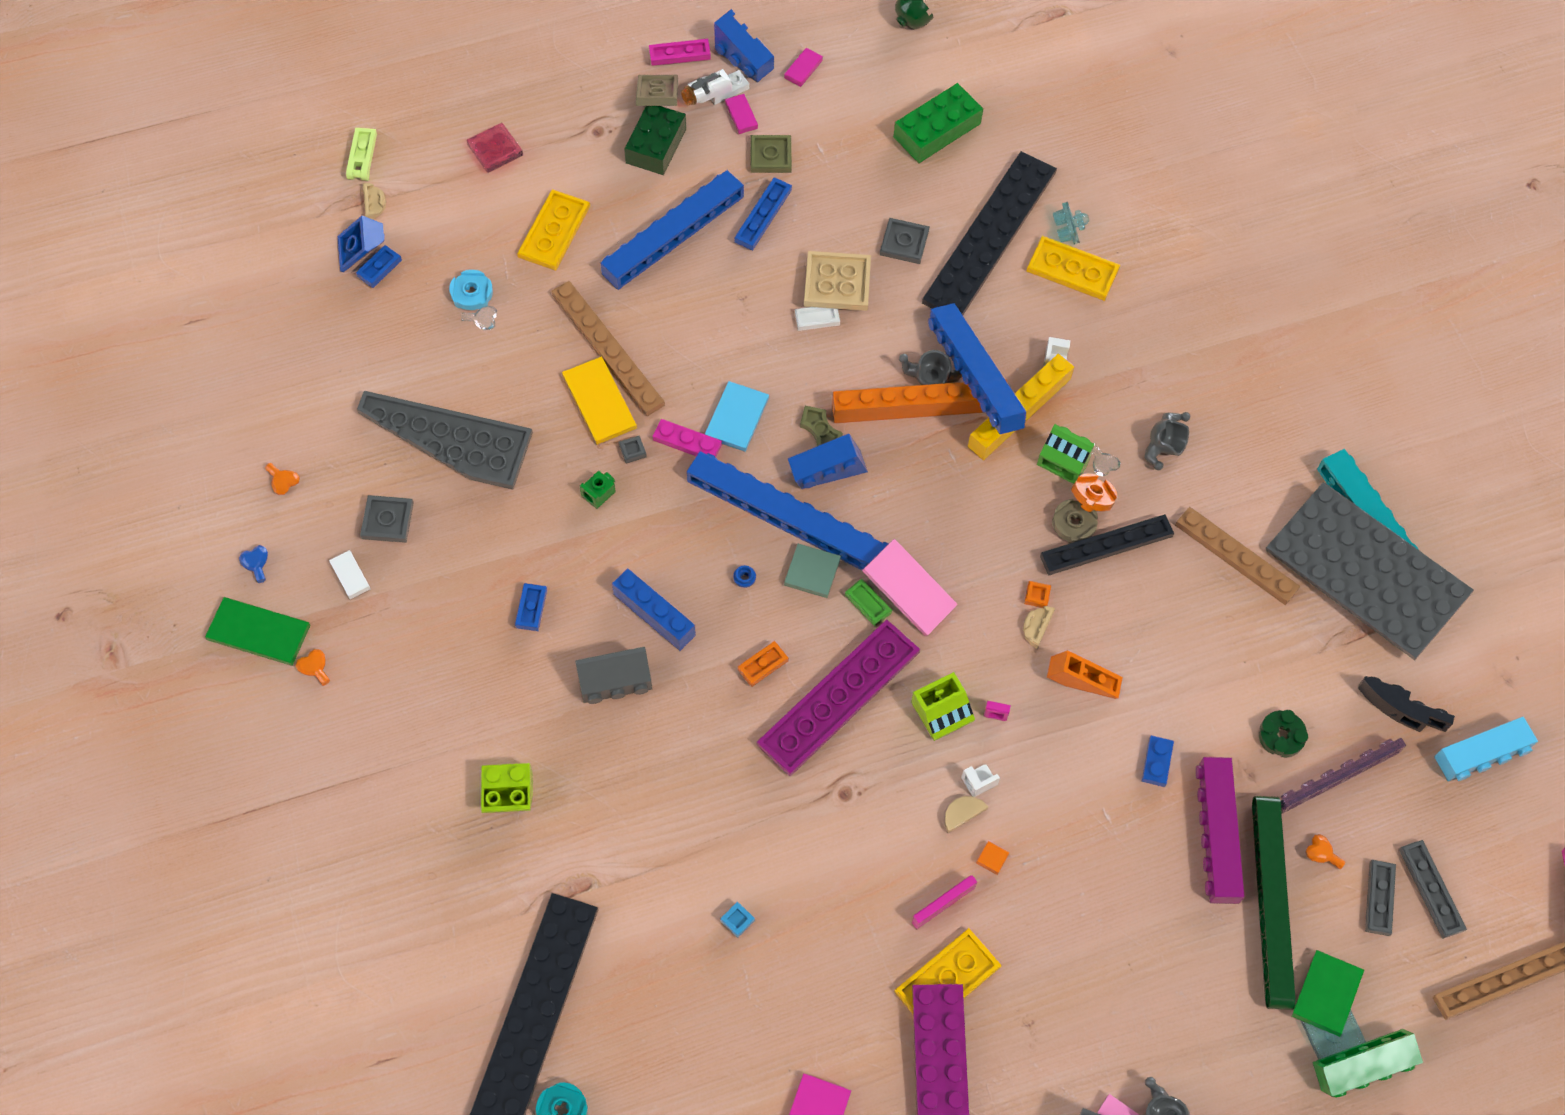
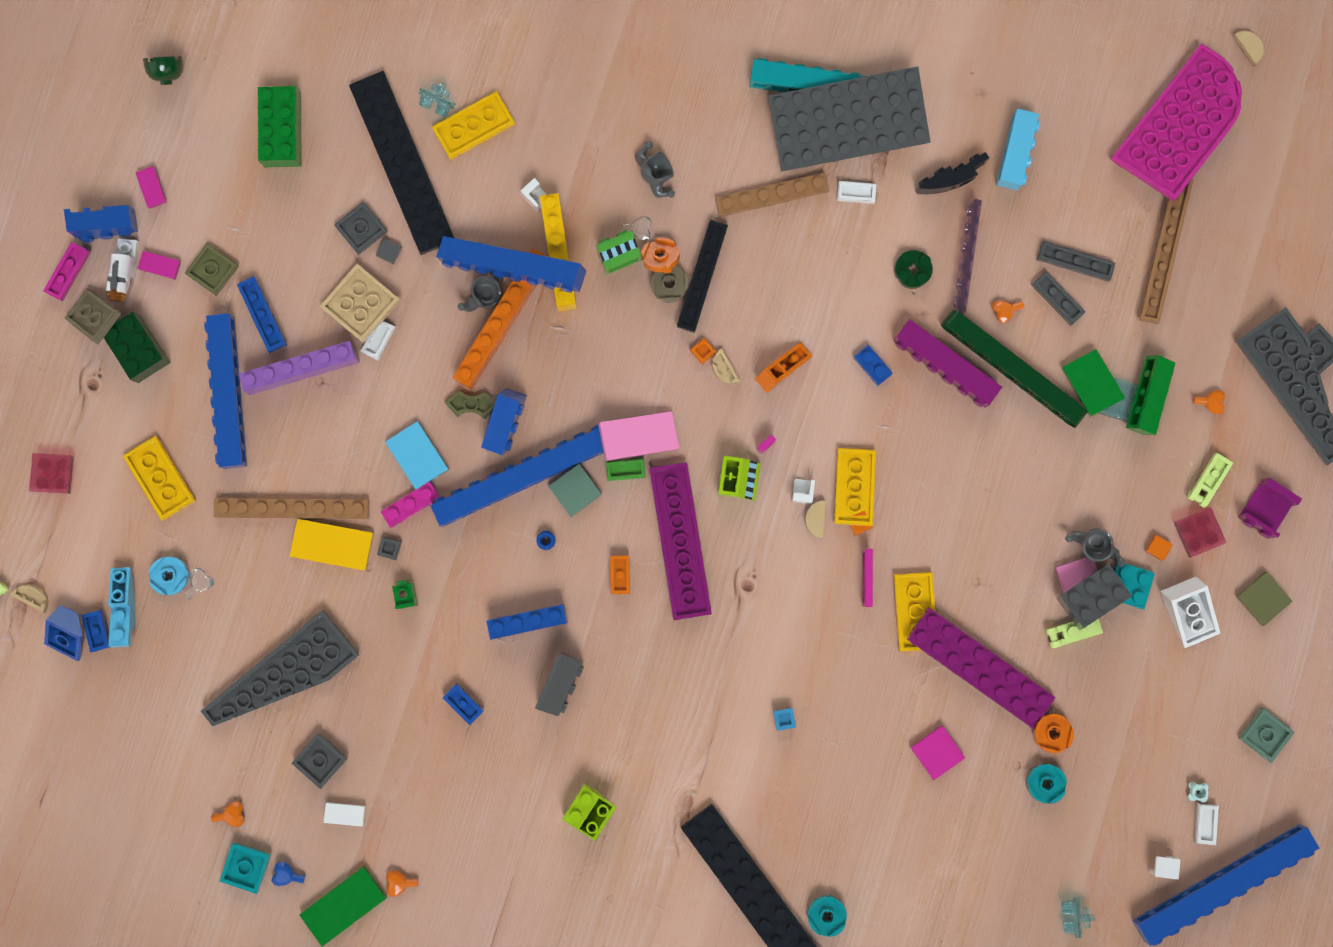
camera: 55 degrees left, 20 degrees up
(239, 522) = (245, 867): none -> teal plate
(418, 271) = (122, 607): none -> medium azure slope
(740, 270) = (299, 368): none -> medium lavender brick
(903, 274) = (388, 251): none -> dark grey tile
(1025, 827) = (854, 486): none -> yellow tile
(1308, 629) = (856, 192): none -> white tile

